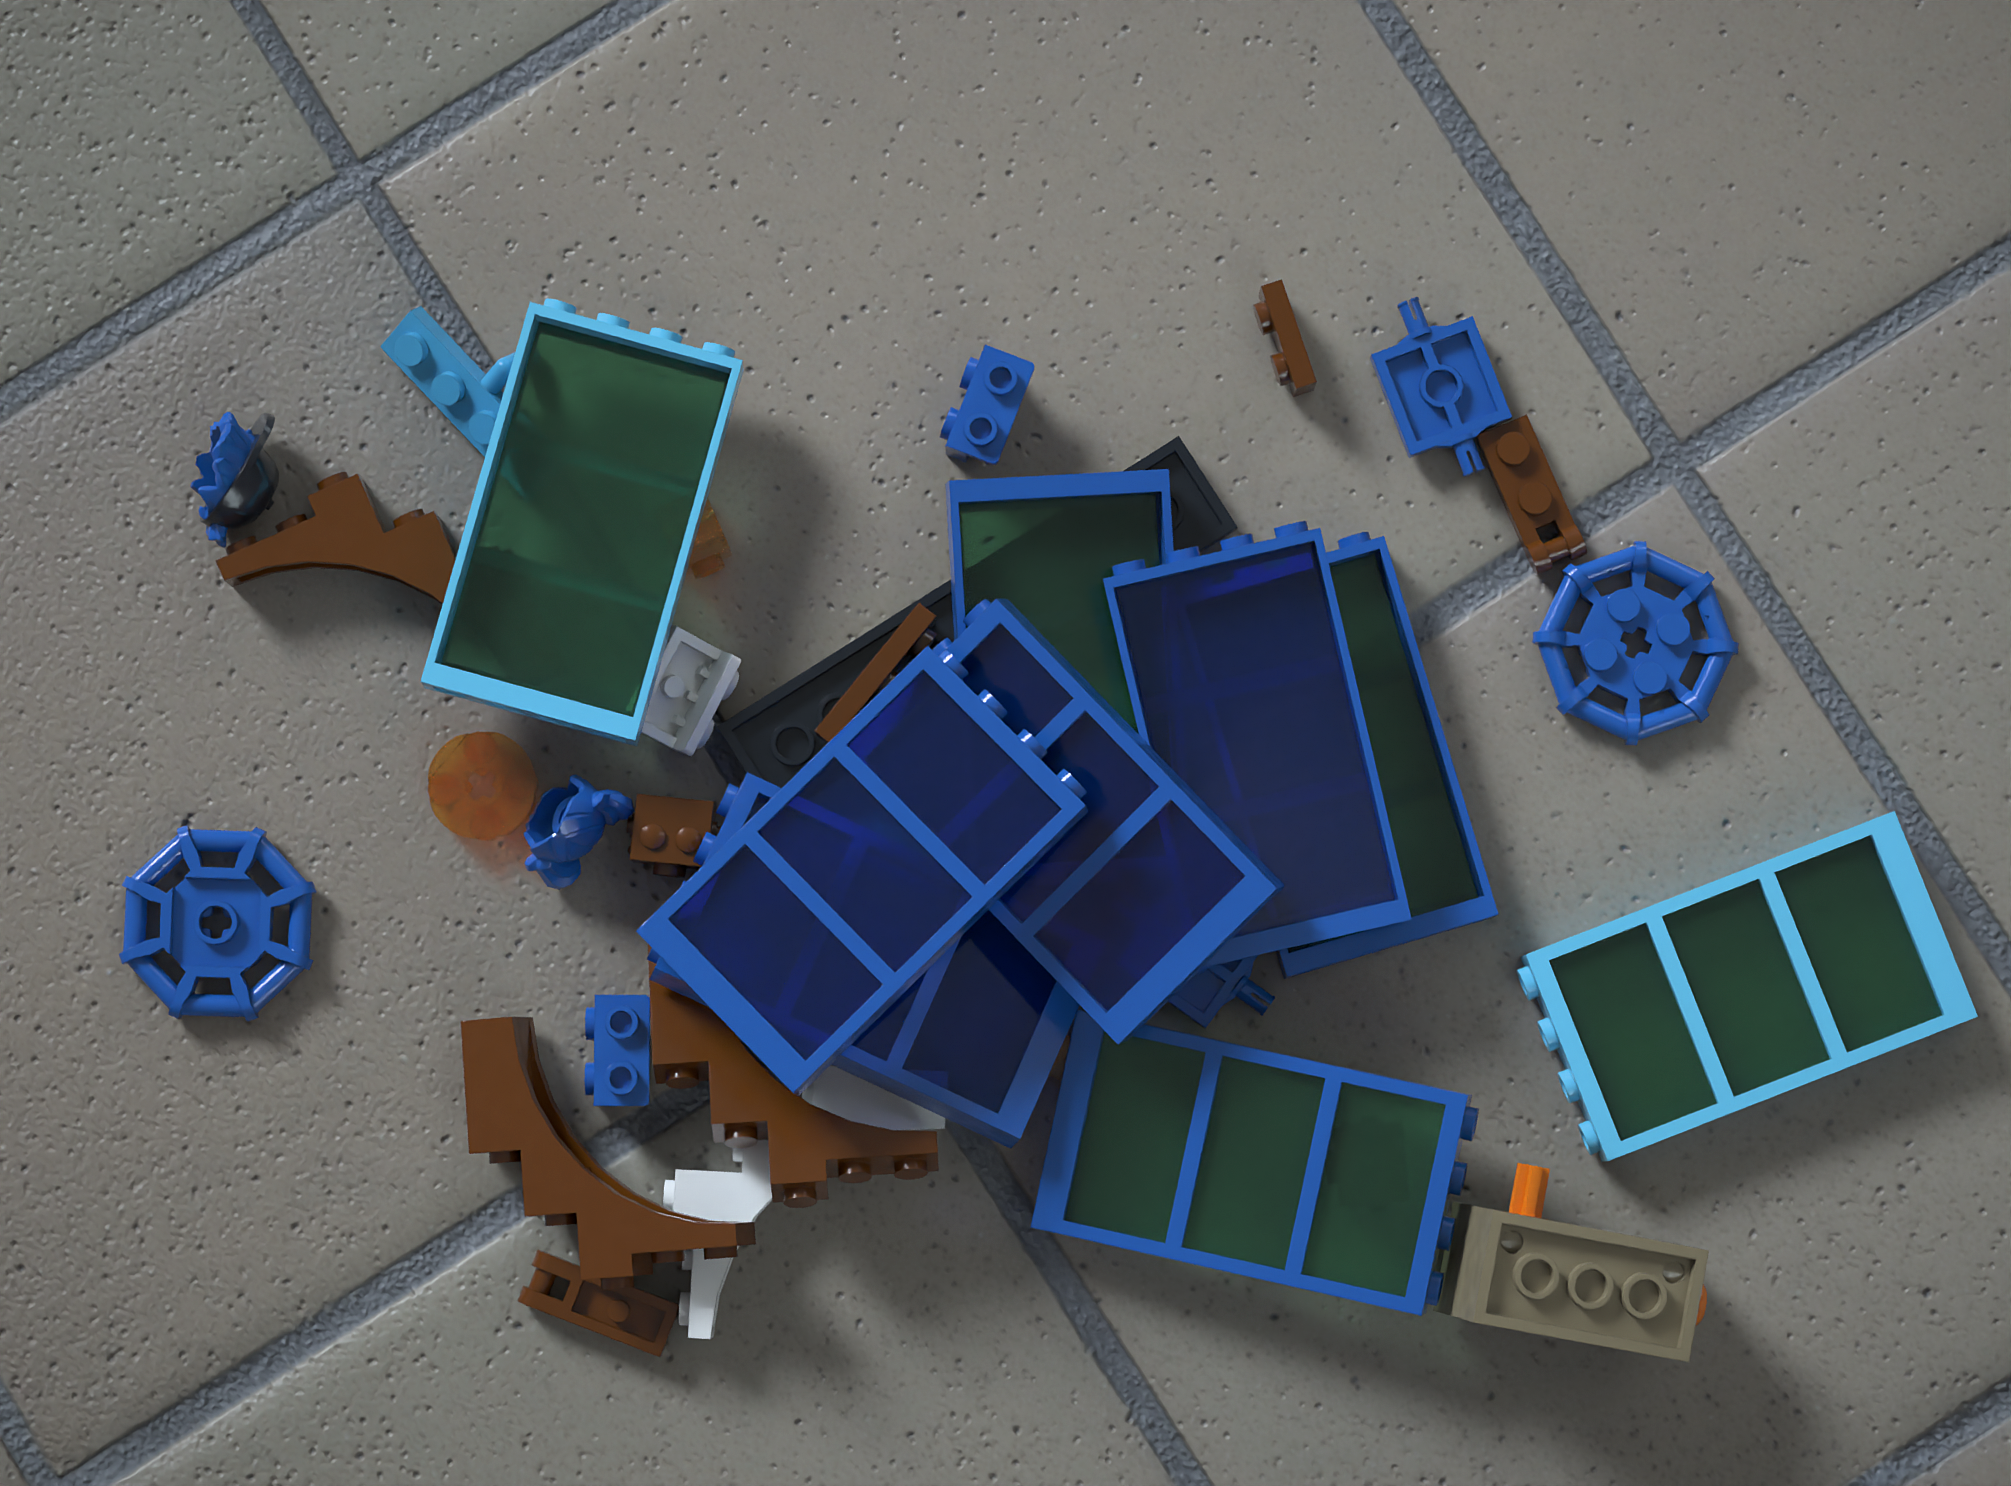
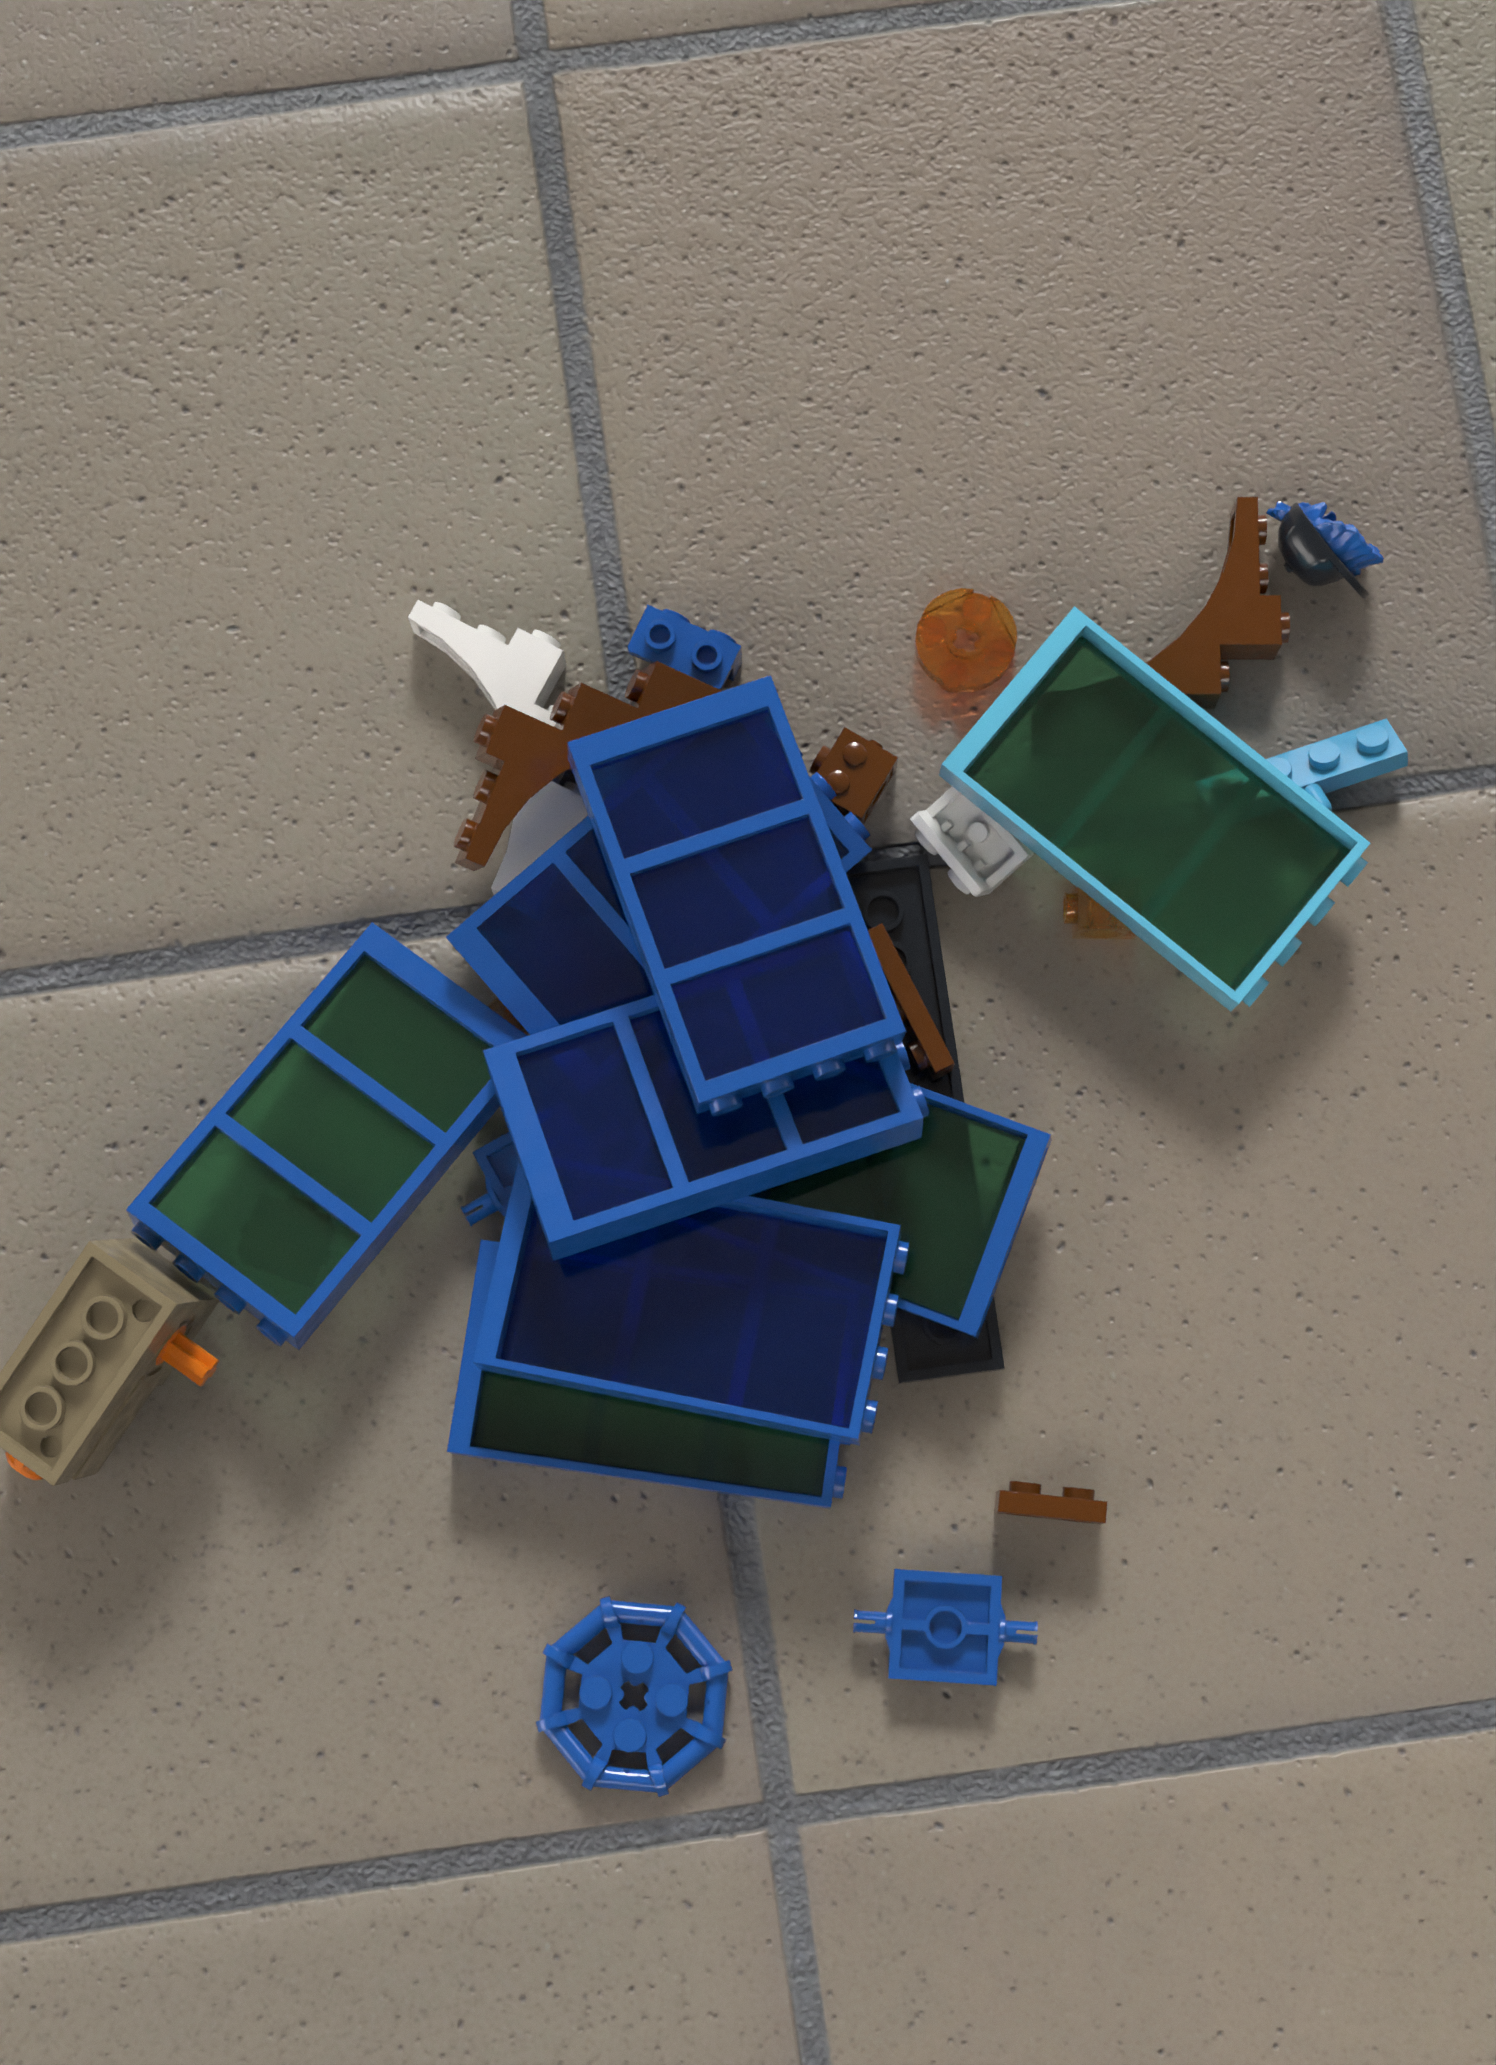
camera: 115 degrees right, 5 degrees down
(240, 945) = (943, 407): blue plate -> none
(518, 1121) = (598, 556): reddish brown arch -> none
(568, 826) = (896, 692): blue hair -> none
(619, 1313) = (483, 549): reddish brown plate -> none
(989, 407) = (1104, 1208): blue bracket -> none
(1530, 493) = (813, 1664): reddish brown plate -> none
(1746, 987) = (280, 1649): clear green window -> none

